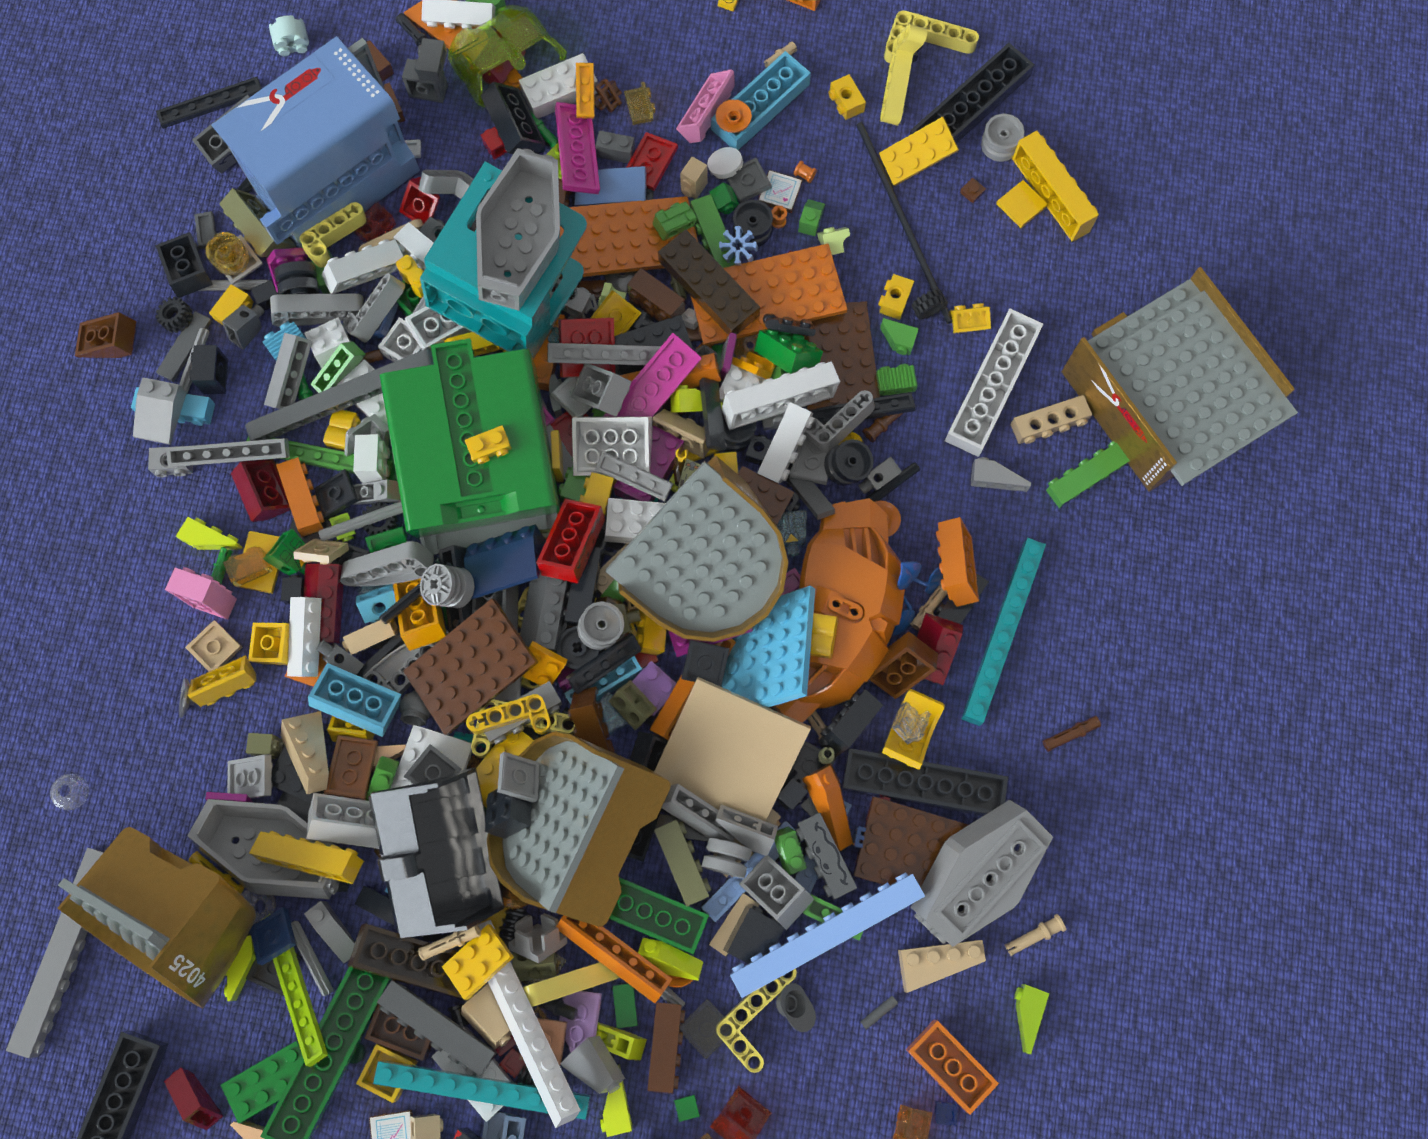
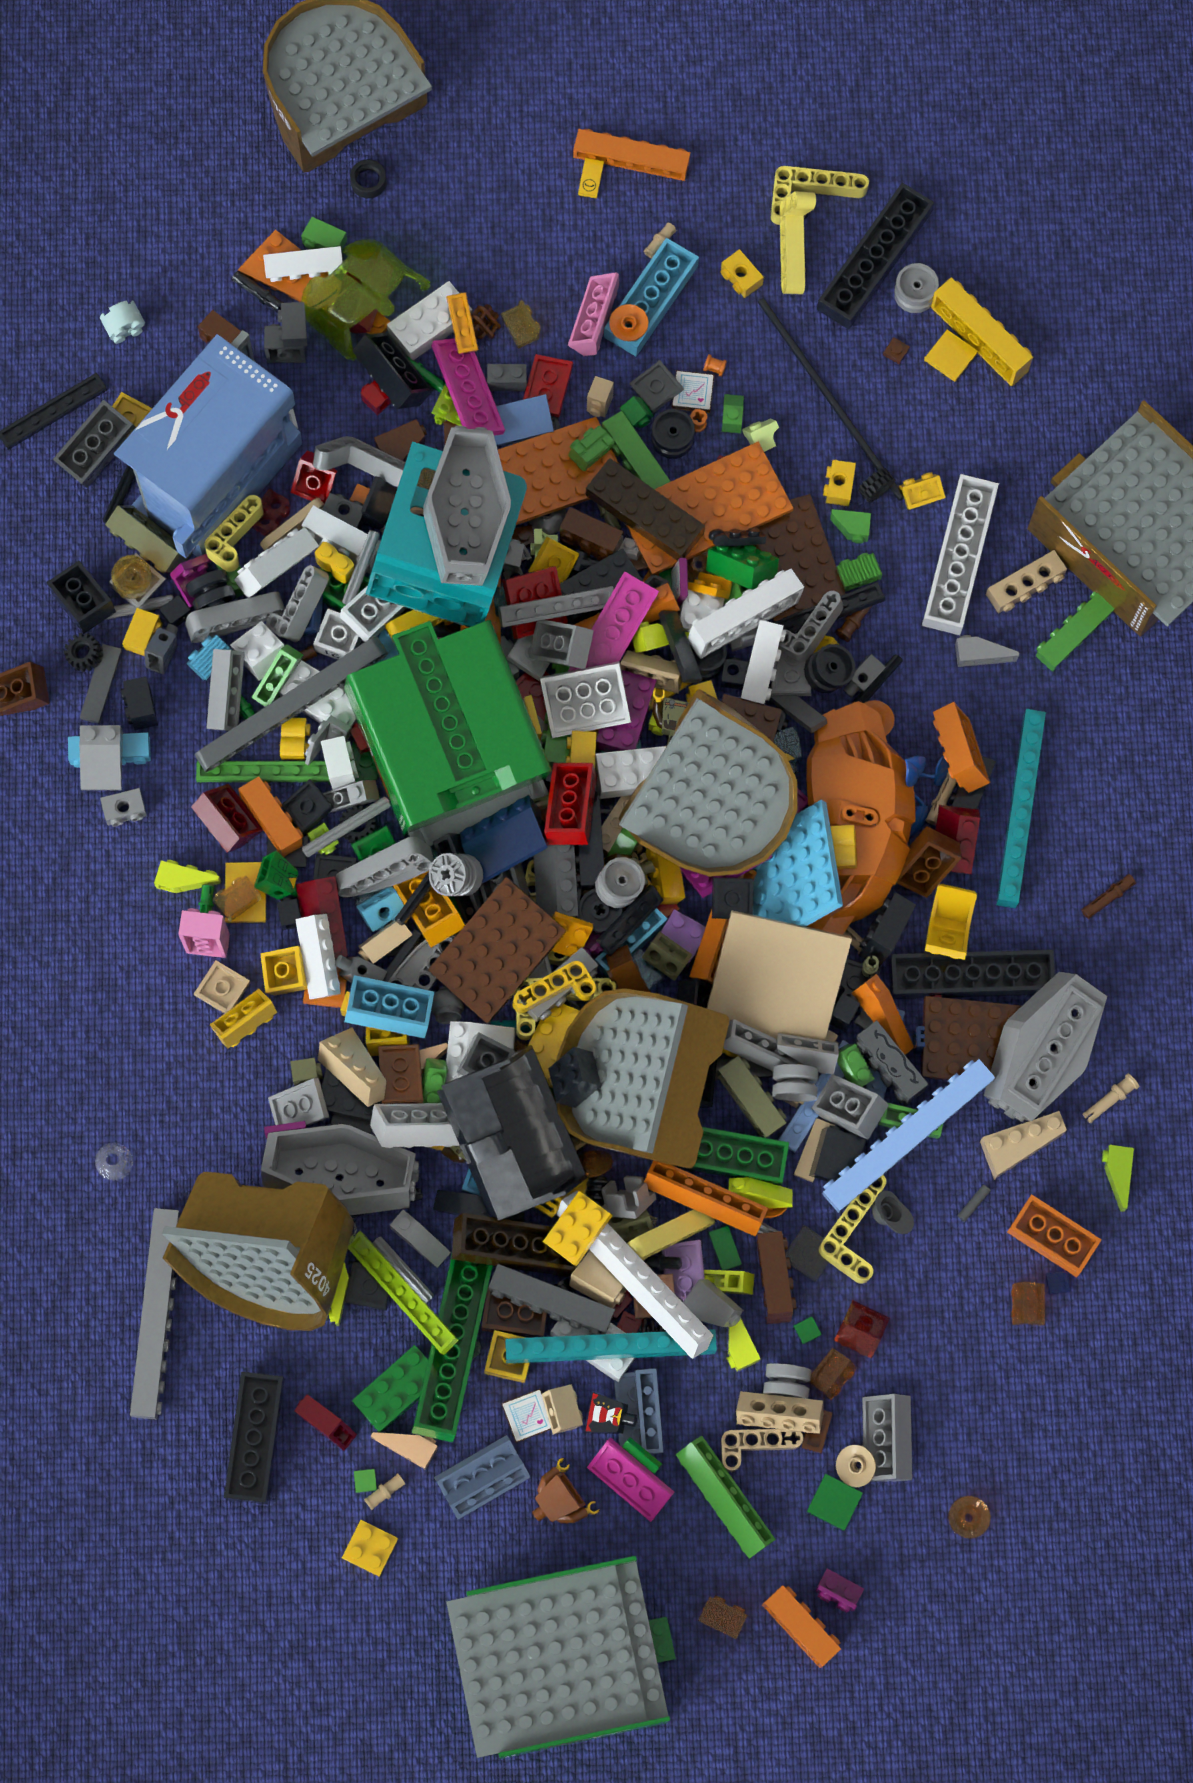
camera: 15 degrees left, 0 degrees up
(185, 701) = (208, 1043): flat silver dish -> none
(200, 340) = (116, 696): light grey axle -> none
(205, 228) = (88, 553): dark grey tile -> none
(227, 452) = (189, 785): light grey brick -> none
(272, 936) = (366, 1252): dark blue plate -> none
(307, 856) = (384, 1165): yellow brick -> none
(321, 551) = (311, 867): tan plate -> none
(456, 939) = (554, 1209): tan pin -> none
(488, 444) = (472, 724): yellow bracket -> none
(518, 777) = (578, 1042): light grey tile -> none
(634, 476) = (616, 726): light grey tile -> none
(725, 162) = (628, 371): white tile -> none
(730, 247) = (670, 459): light blue gear -> none
(910, 724) = (946, 918): clear bracket -> none
(918, 151) = (831, 322): yellow plate -> none

